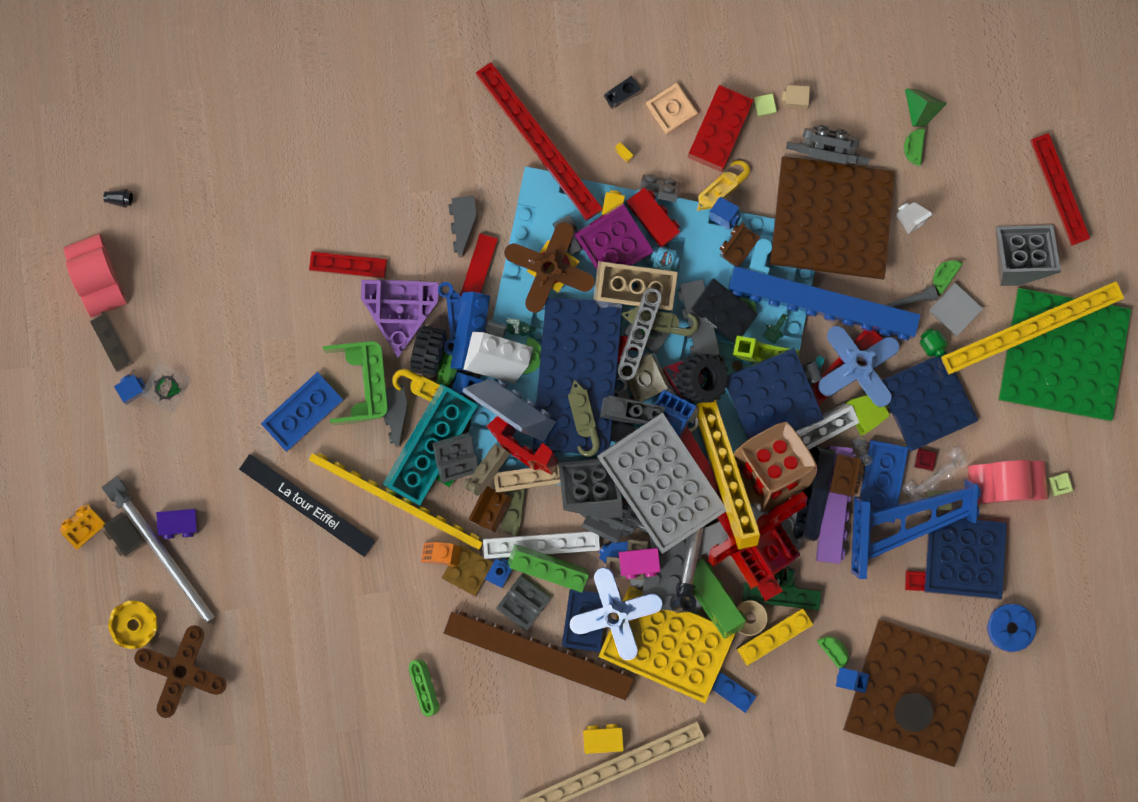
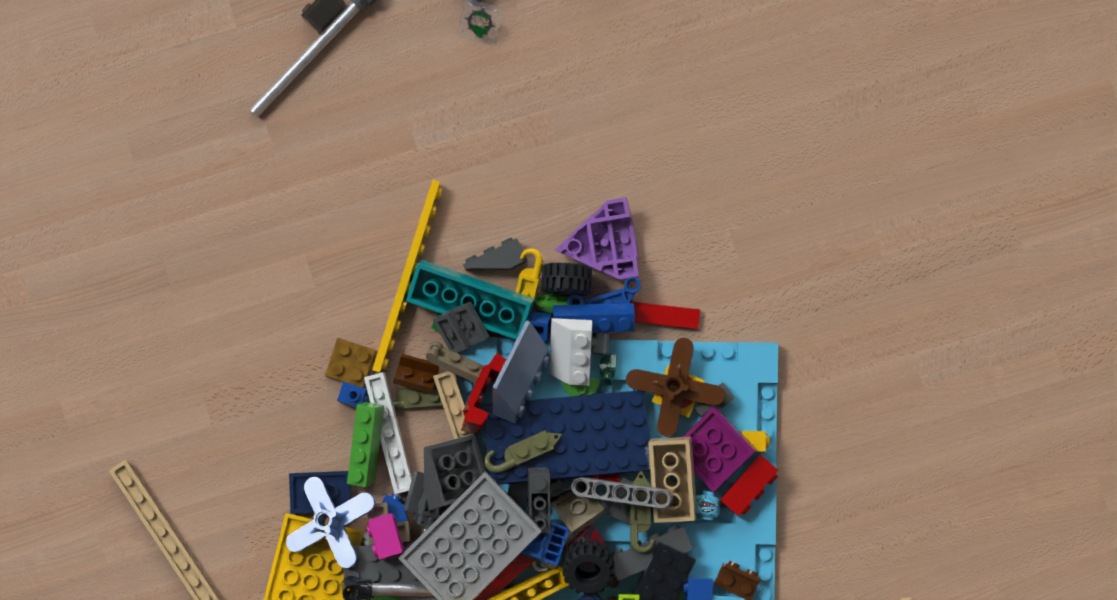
camera: 80 degrees right, 0 degrees up
(119, 624) = (234, 23): yellow plate -> none
(168, 667) = (183, 91): reddish brown piece -> none
(177, 522) = (345, 60): dark purple brick -> none
(302, 412) = (481, 164): blue plate -> none
(307, 505) = (387, 187): black tile -> none
(348, 265) = (641, 181): red tile -> none
(371, 358) = (547, 223): bright green windscreen -> none
(423, 687) = (222, 341): bright green plate -> none
(441, 554) = (361, 332): orange slope -> none
(464, 220) = (710, 291): dark grey slope -> none
(523, 603) = (326, 426): dark grey slope -> none
(538, 655) = (275, 451): reddish brown brick -> none
(539, 141) = (806, 352): red plate -> none
(603, 740) = (201, 533): yellow brick -> none
(622, 92) = (876, 430): black leg -> none
(623, 152) = (812, 443): yellow tile -> none
(666, 188) = (784, 493): dark grey plate -> none
(671, 108) = (870, 484): light nougat tile -> none
(720, 128) = (858, 539): red brick -> none
(722, 186) = (796, 552): yellow plate -> none
(725, 213) = (767, 560): blue brick -> none
(765, 105) = (893, 581): yellowish green tile -> none

